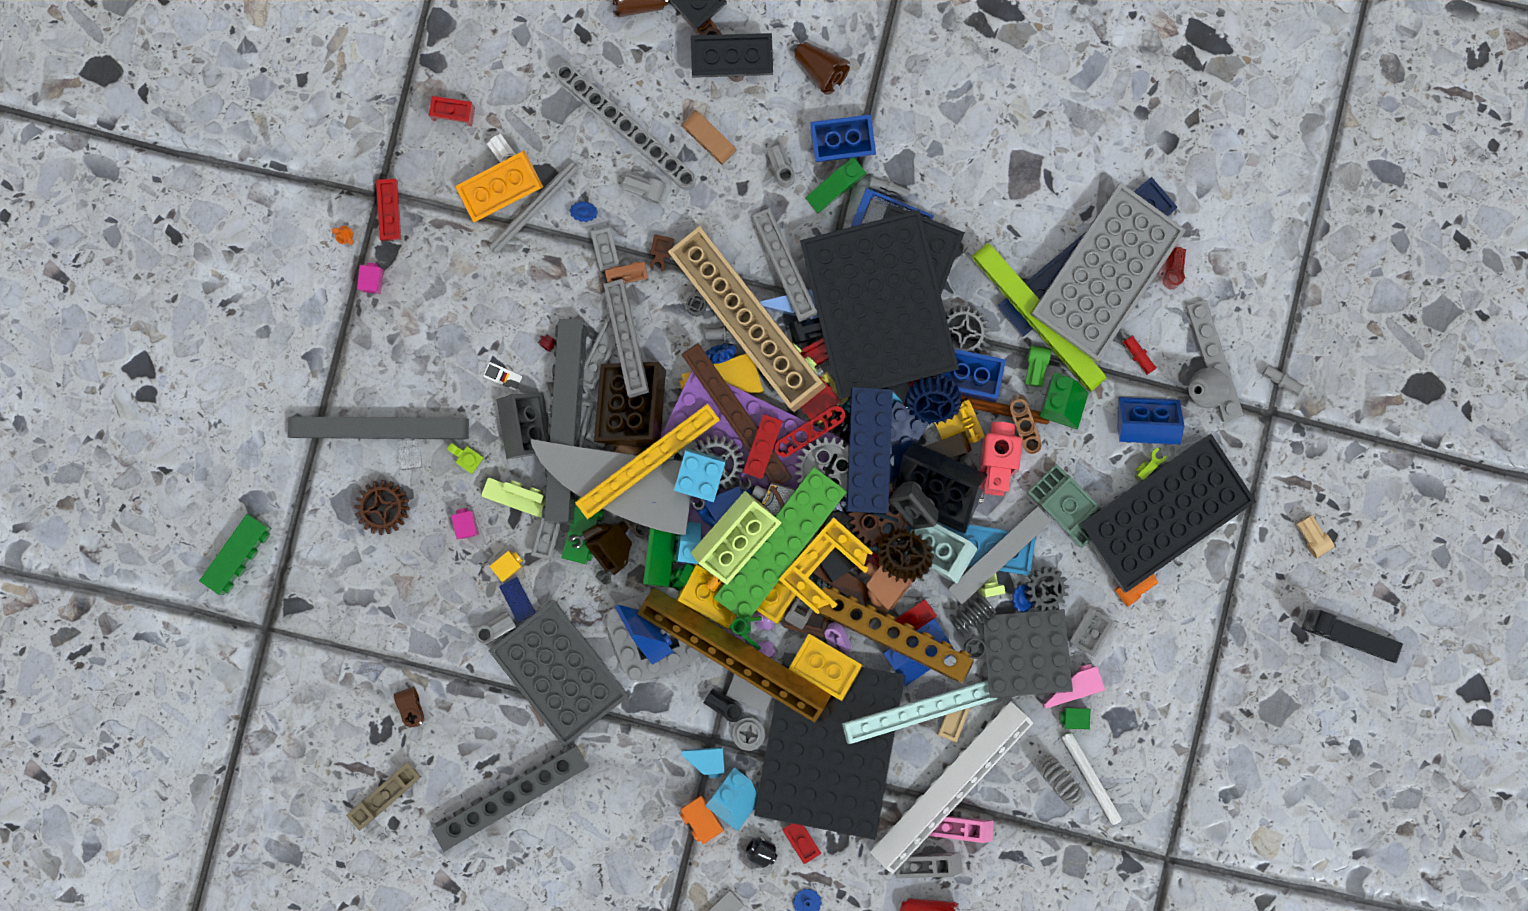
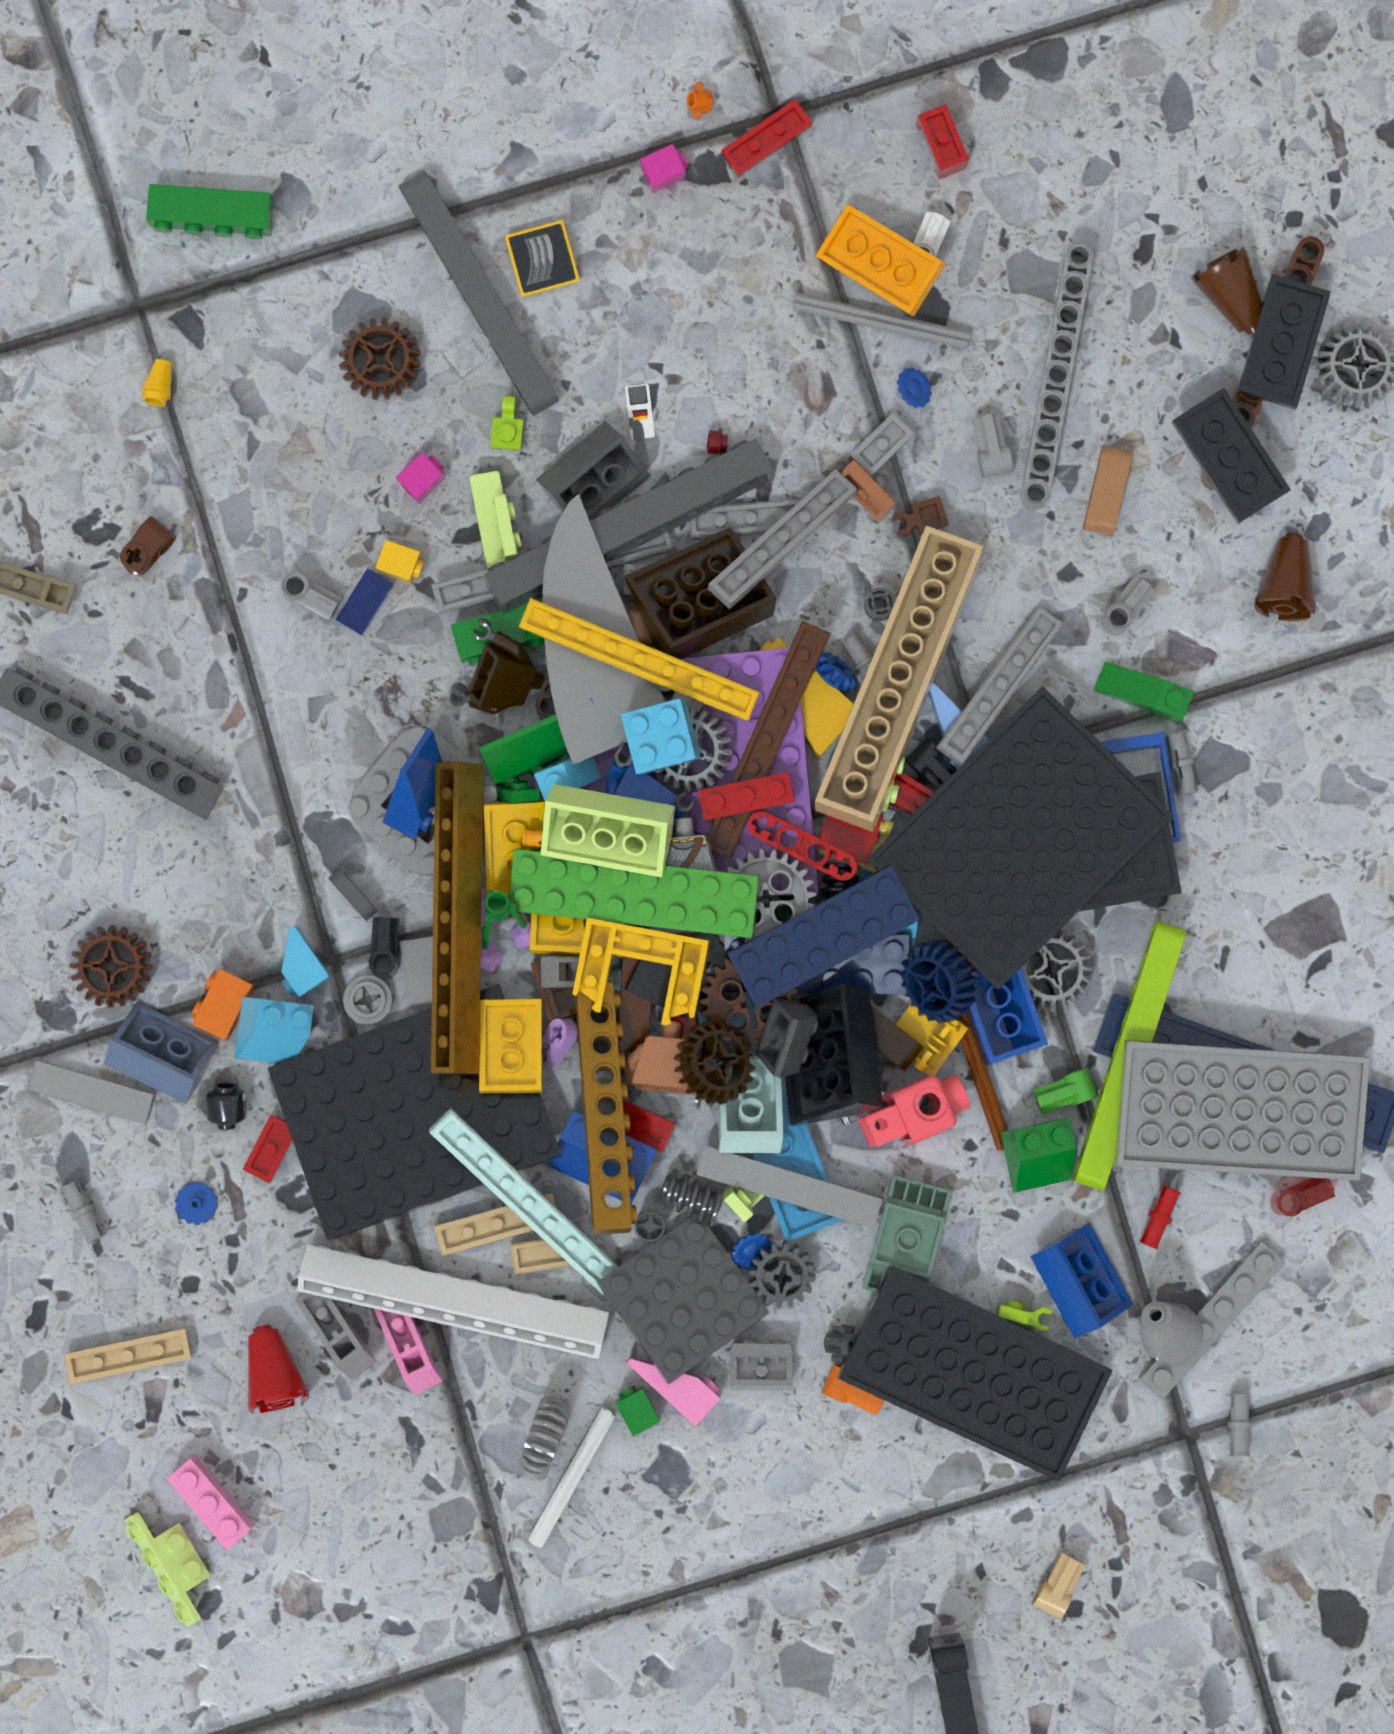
camera: 55 degrees right, 0 degrees up
(318, 644) = (157, 386): none -> yellow cone
(379, 379) = (542, 258): none -> slope
(558, 673) = (301, 710): dark grey plate -> none
(649, 876) = (111, 980): none -> reddish brown gear
(683, 706) = (353, 894): none -> dark grey beam
(708, 872) = (160, 1052): none -> sand blue slope
(842, 138) = (1209, 663): blue slope -> none
(919, 746) = (481, 1229): none -> tan plate
(1029, 432) = (970, 1130): medium nougat beam -> none
(1104, 579) = (839, 1341): none -> dark grey gear

